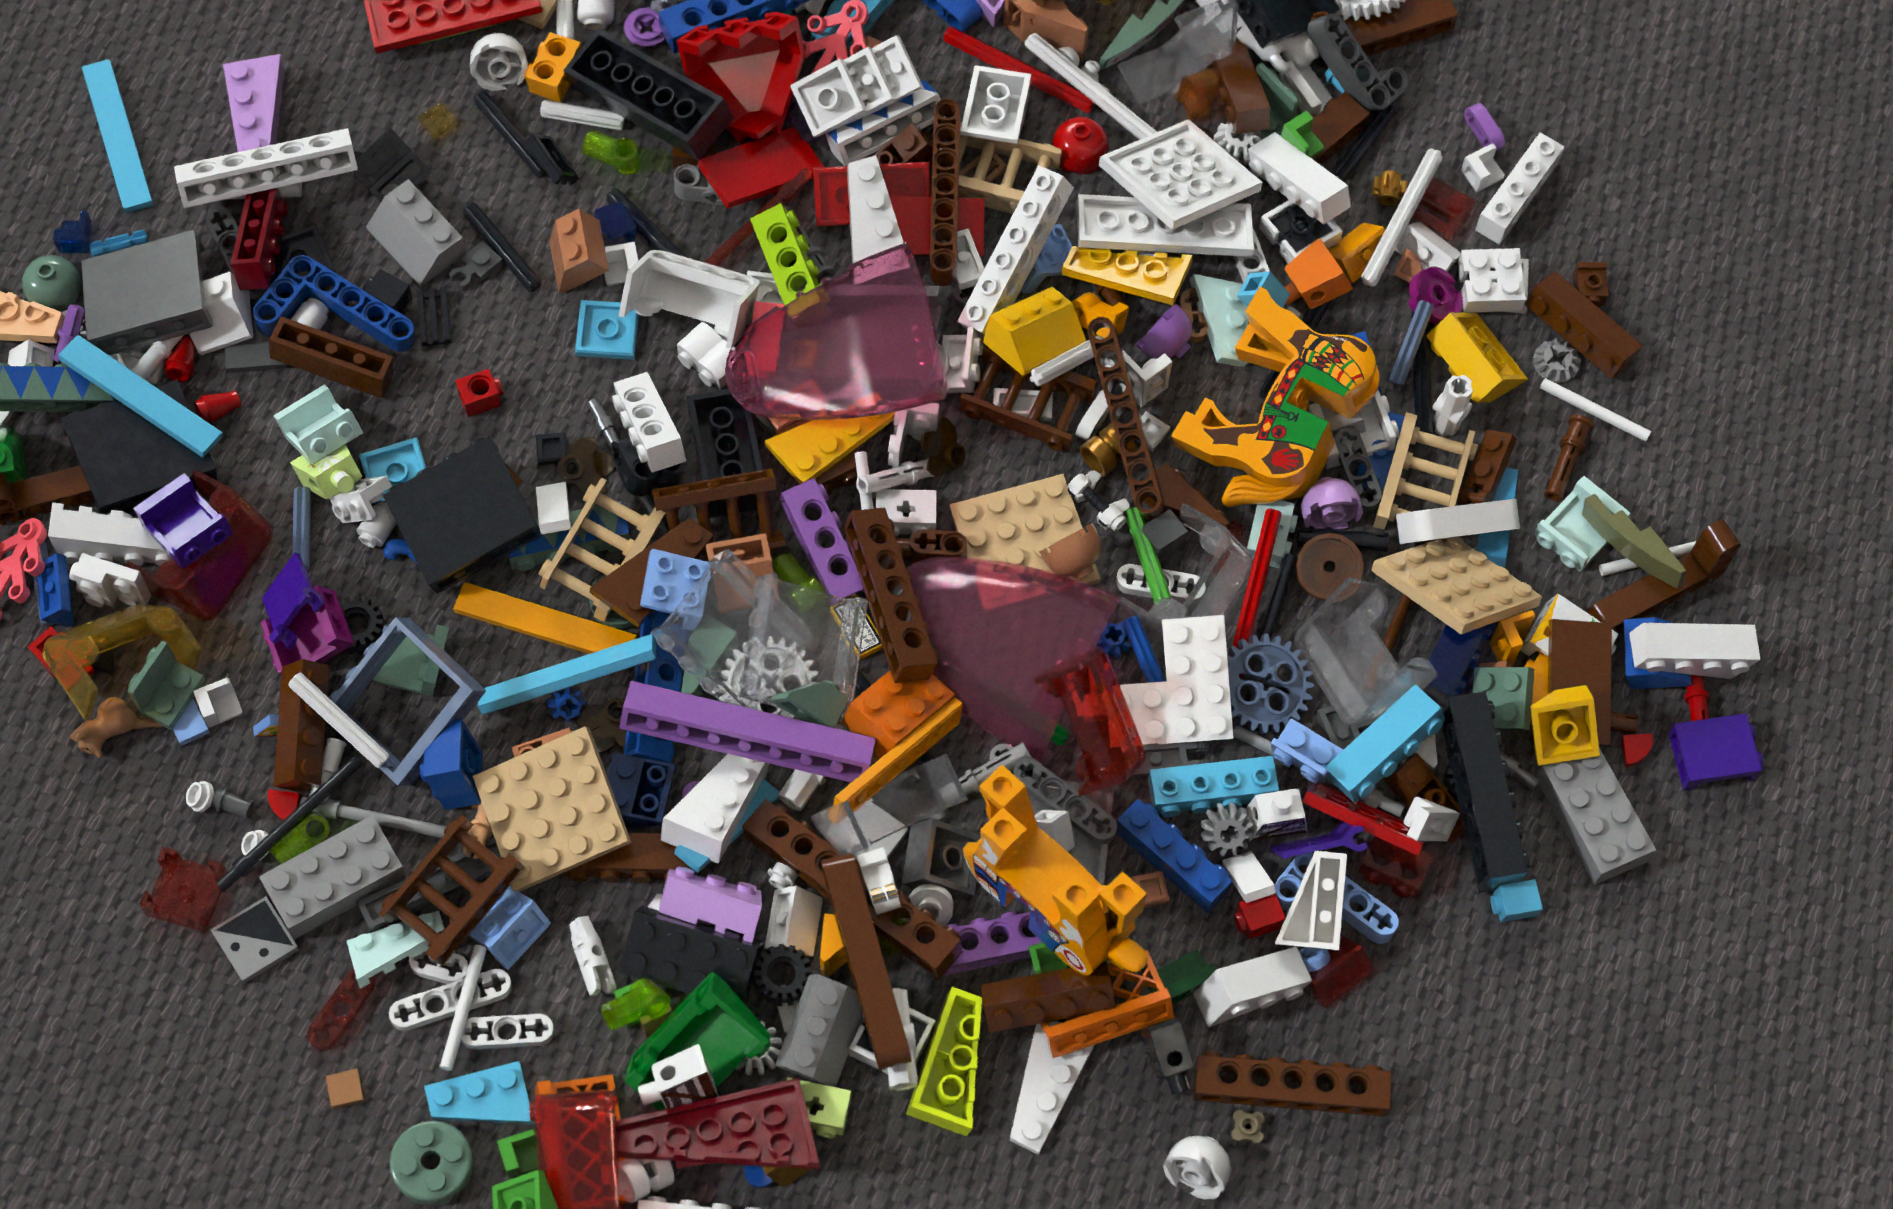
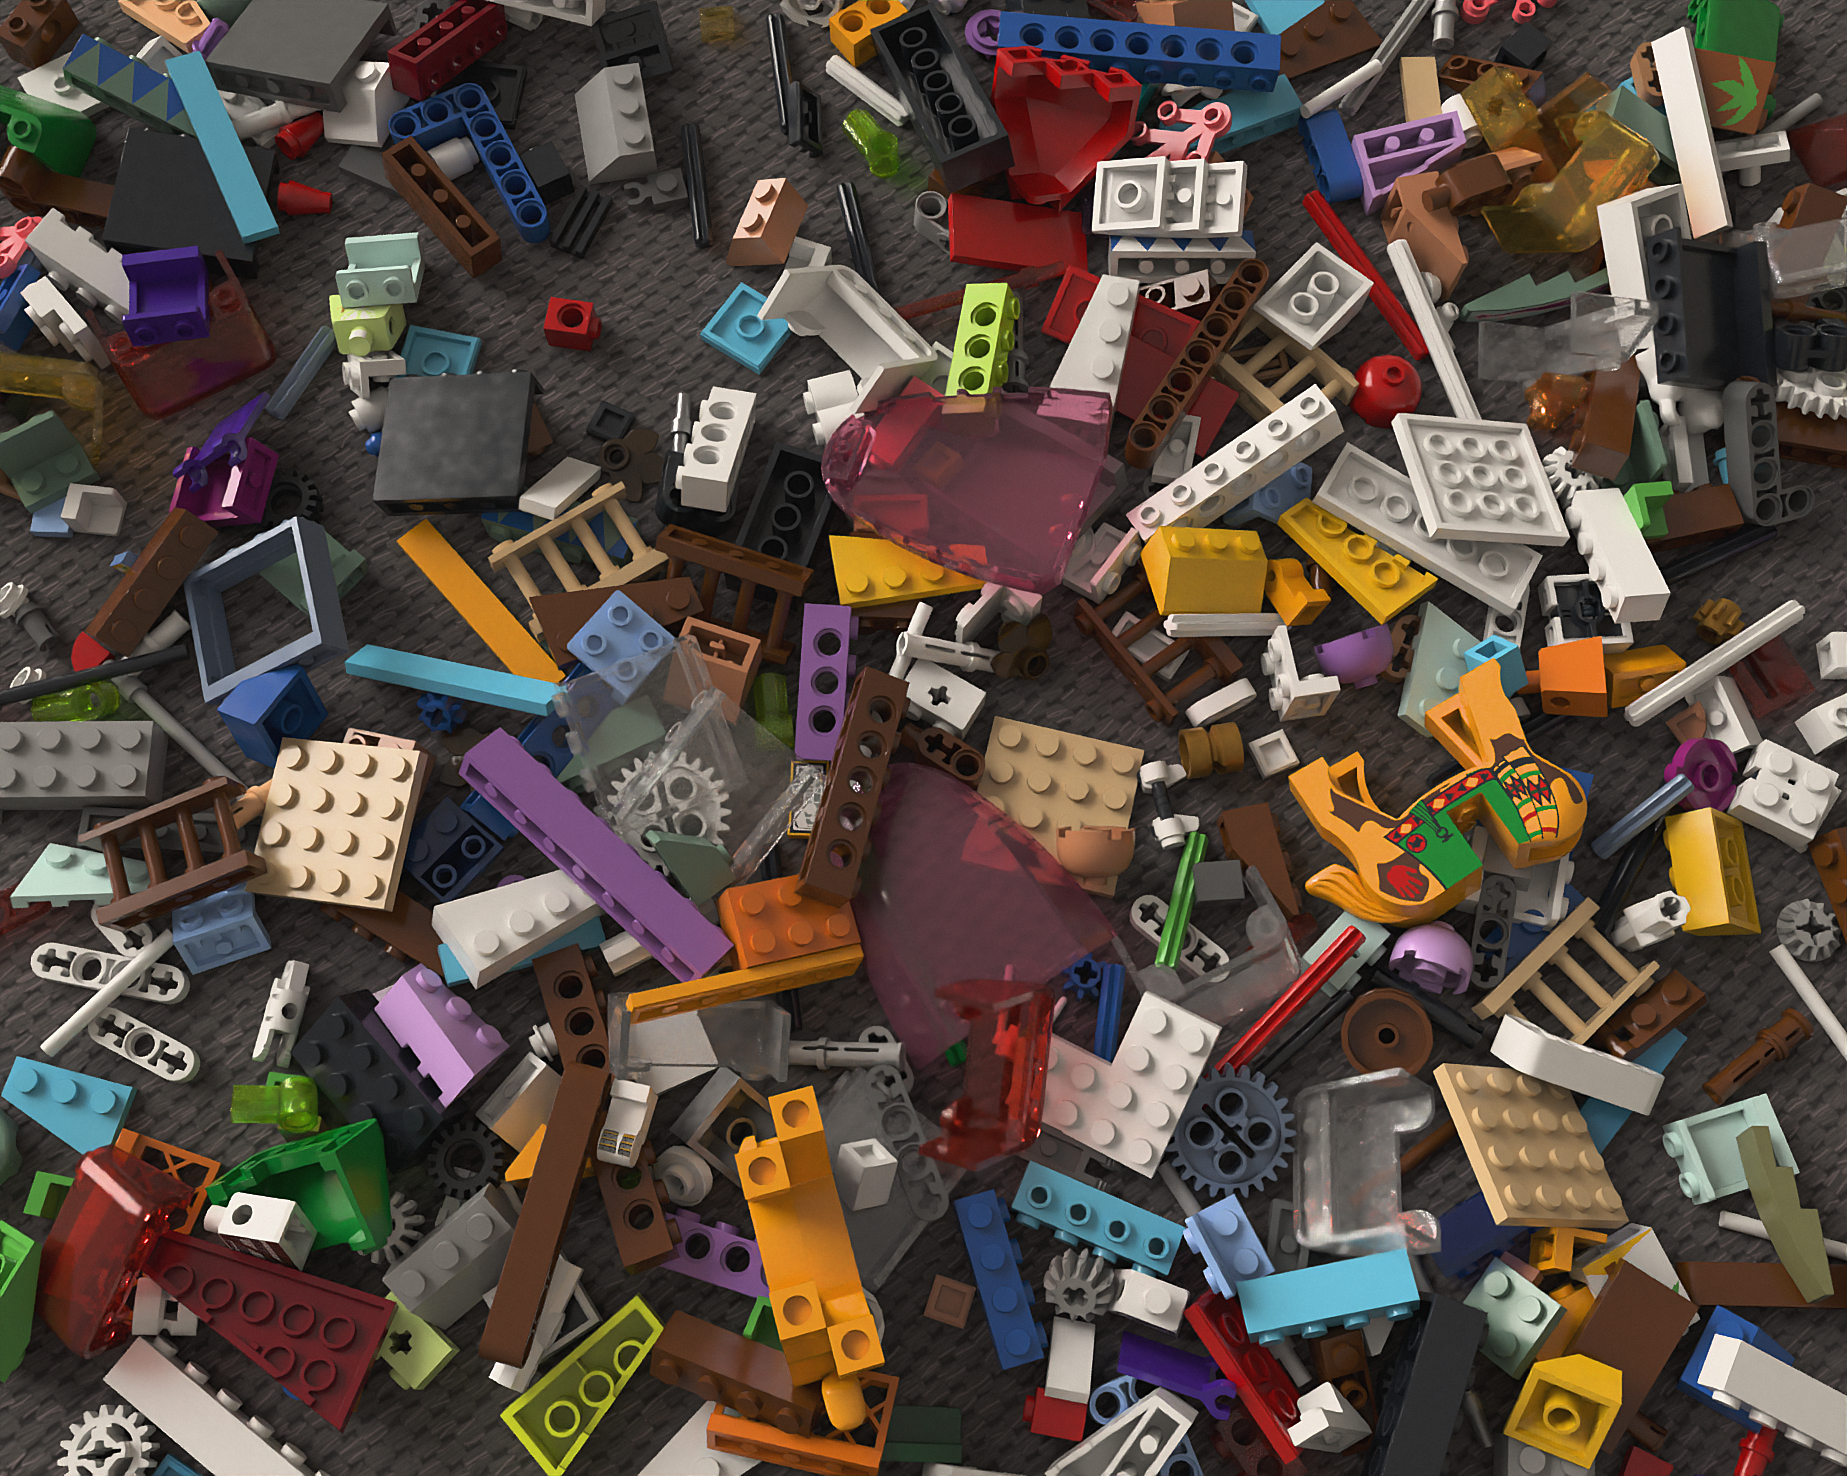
camera: 30 degrees right, 5 degrees up
(338, 720) = (180, 596): white axle -> none
(616, 221) = (826, 216): clear blue panel -> none
(1122, 403) = (1242, 708): reddish brown beam -> none

